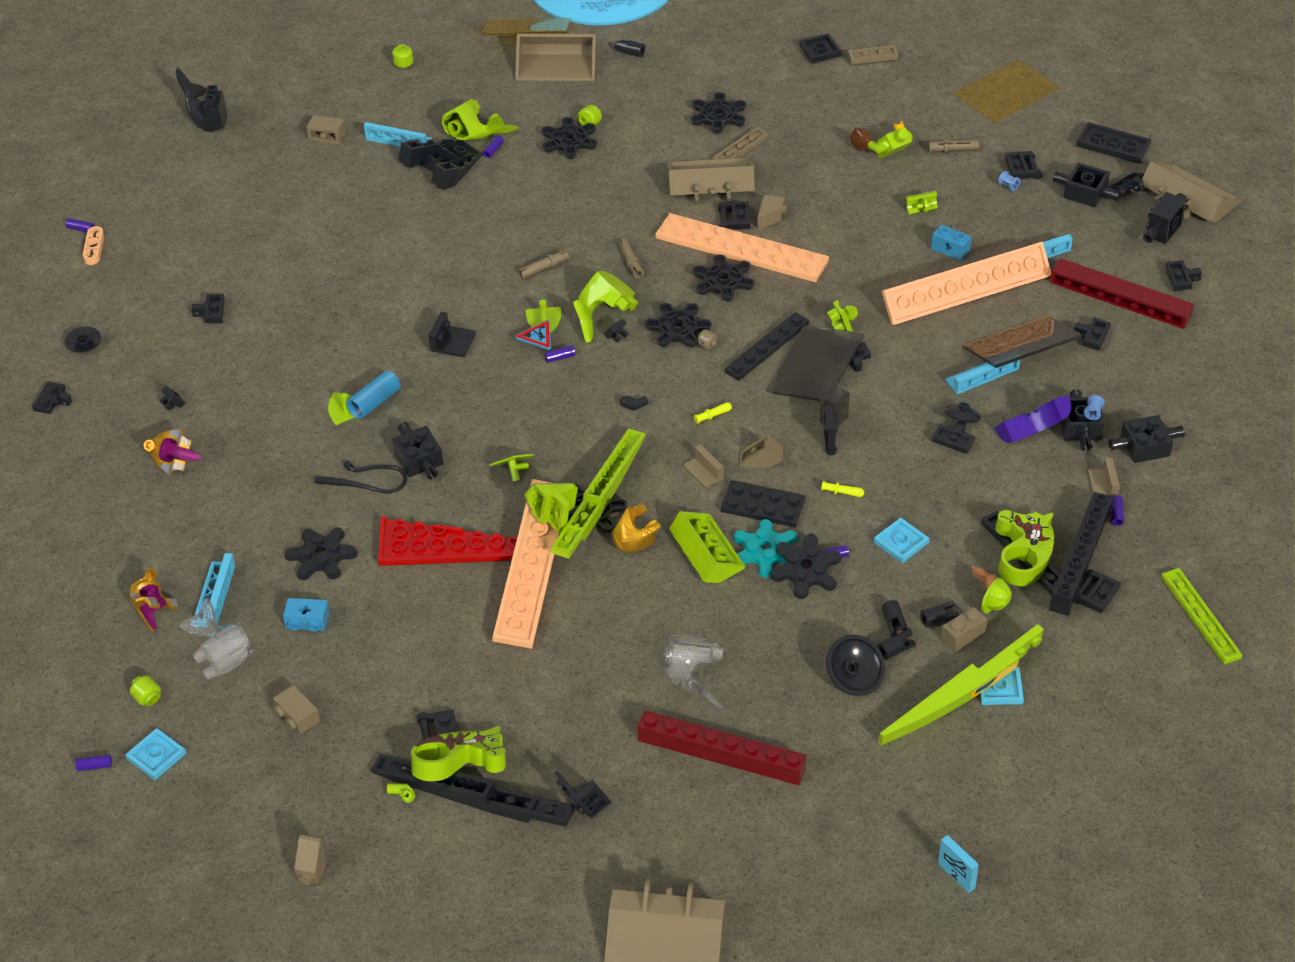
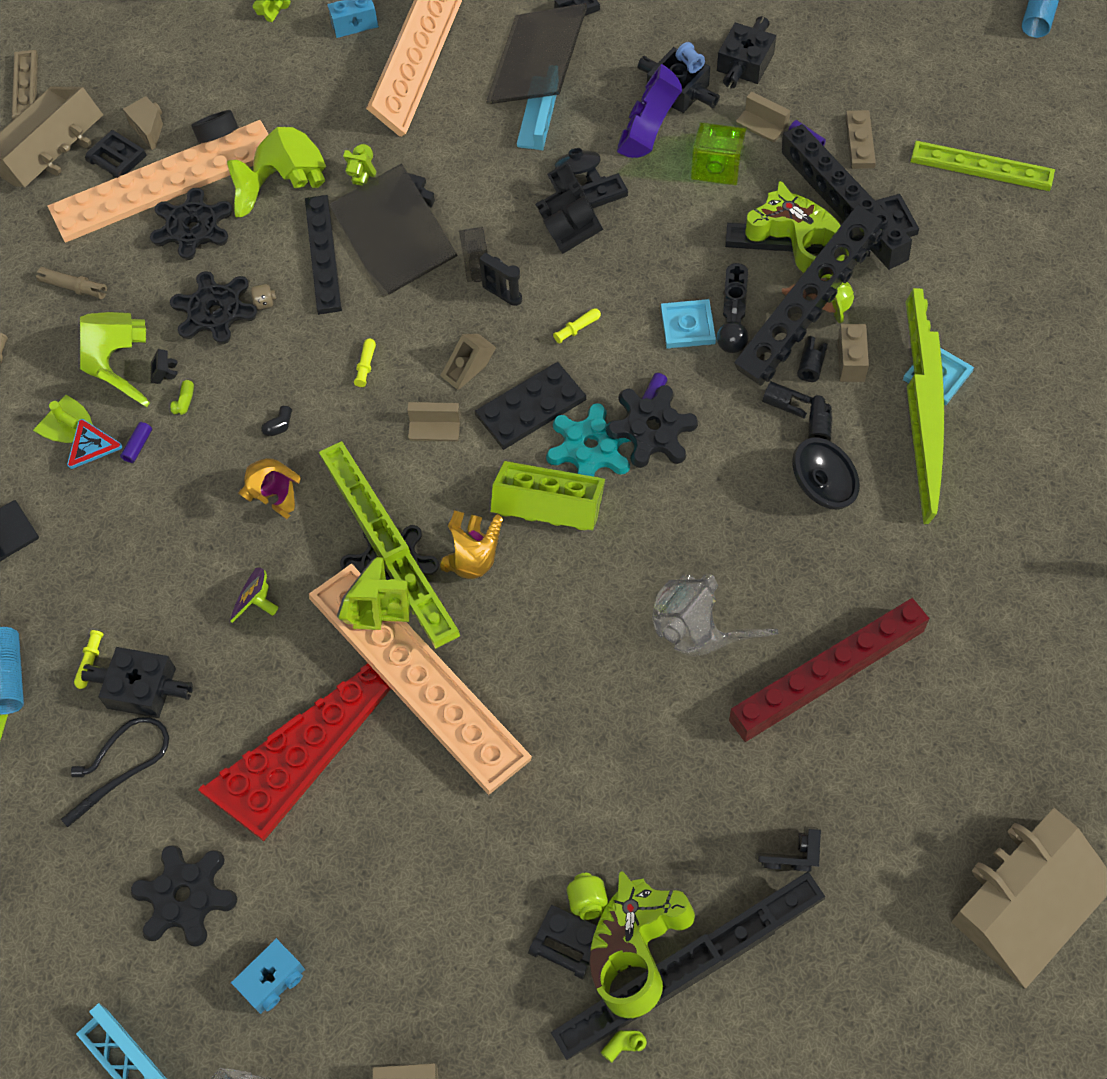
camera: 50 degrees left, 15 degrees up
(417, 423) = (89, 656): none -> neon yellow piece
(471, 719) = (587, 896): none -> lime head
(587, 419) = (268, 479): none -> pearl gold piece
(607, 353) = (186, 393): none -> lime arm
(797, 239) = (214, 126): none -> black tyre
(810, 282) = (281, 151): none -> lime hips
(916, 430) = (568, 211): none -> black plate
(944, 549) = (732, 335): none -> black beam
(972, 573) = (858, 223): none -> black brick
(1046, 472) = (718, 153): none -> clear neon green slope
(1147, 539) = (860, 139): none -> dark tan plate

